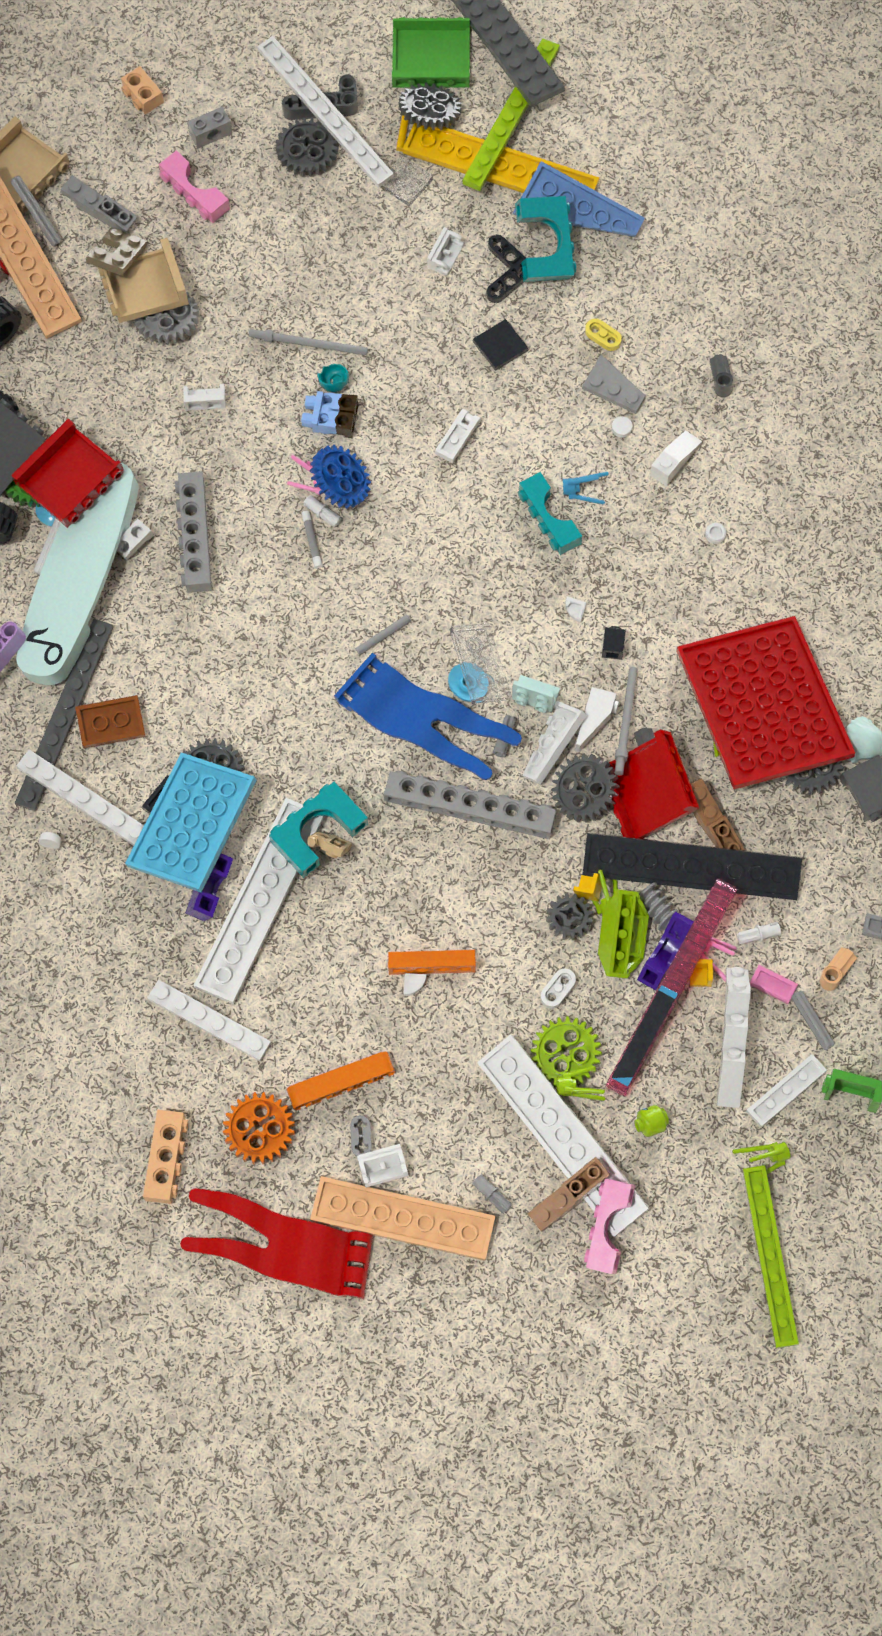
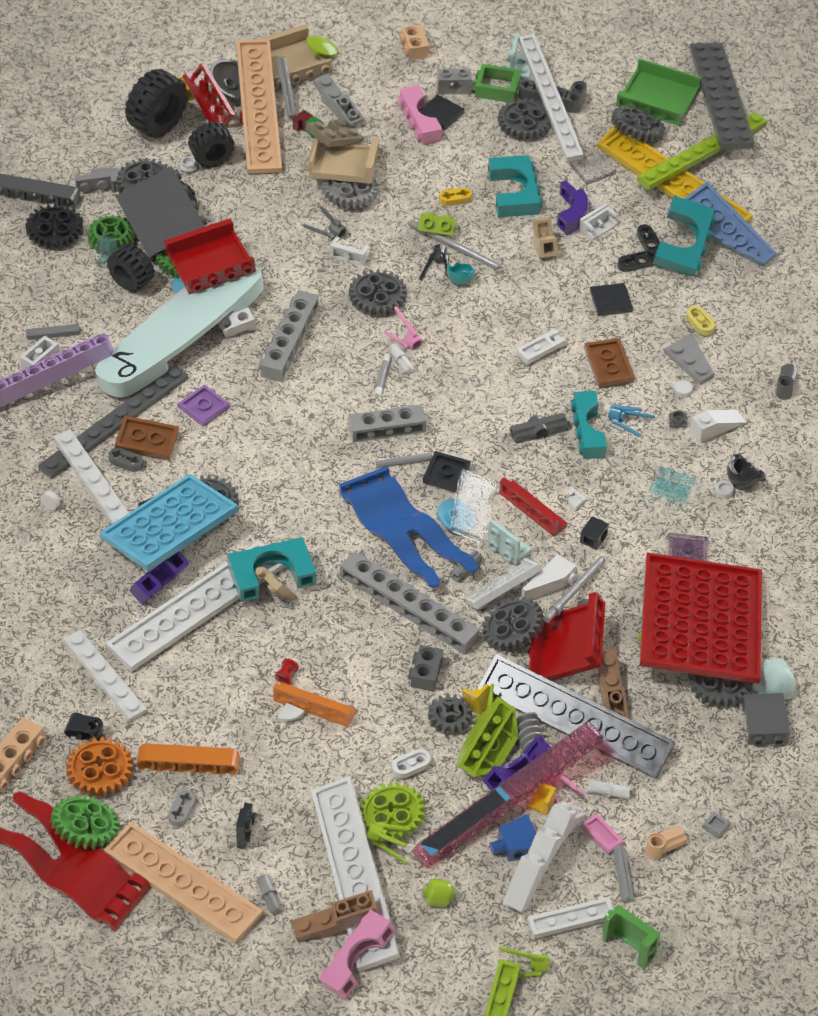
camera: 20 degrees right, 20 degrees down
(44, 136) = (321, 46): none -> lime dish
(78, 246) = (301, 119): none -> dark red leg
(100, 761) = (126, 459): none -> dark grey beam
(147, 655) = (203, 405): none -> medium lavender tile
(176, 374) = (336, 228): none -> dark grey plant
(213, 171) = (443, 110): none -> black tile
(219, 1091) = (84, 727): none -> black piece
(240, 437) = (377, 292): none -> dark grey gear
(259, 124) = (496, 92): none -> bright green window
(266, 77) = (517, 60): none -> light aqua bracket
(277, 1198) = (85, 821): none -> bright green gear
(280, 279) = (455, 196): none -> yellow beam
(280, 326) = (437, 224): none -> lime bracket
(299, 363) = (438, 255): none -> black plant
(331, 414) = (446, 296): light blue hips -> none
(335, 217) = (520, 170): none -> teal arch
(340, 476) = (427, 336): blue gear -> none
(342, 609) = (387, 423): none -> light grey brick
(382, 1165) = (187, 833): white hinge -> none
(387, 938) = (286, 671): none -> red bush
(399, 299) = (543, 238): none -> tan brick
(416, 258) = (570, 218): none -> dark purple arch
(432, 631) = (445, 471): none -> black plate
(436, 1135) = (245, 820): none -> black plate
(500, 537) = (538, 427): none -> dark grey piece
(527, 873) = (426, 668): none -> dark grey brick
(534, 426) = (609, 362): none -> dark orange plate
(537, 637) = (531, 507): none -> red fence
(634, 462) = (678, 414): none -> dark grey plate
(662, 556) = (670, 489): none -> clear light blue plate
(698, 1029) = (514, 838): none -> blue torso
(711, 620) = (688, 546): none -> clear purple plate
(729, 508) = (743, 473): none -> black hair

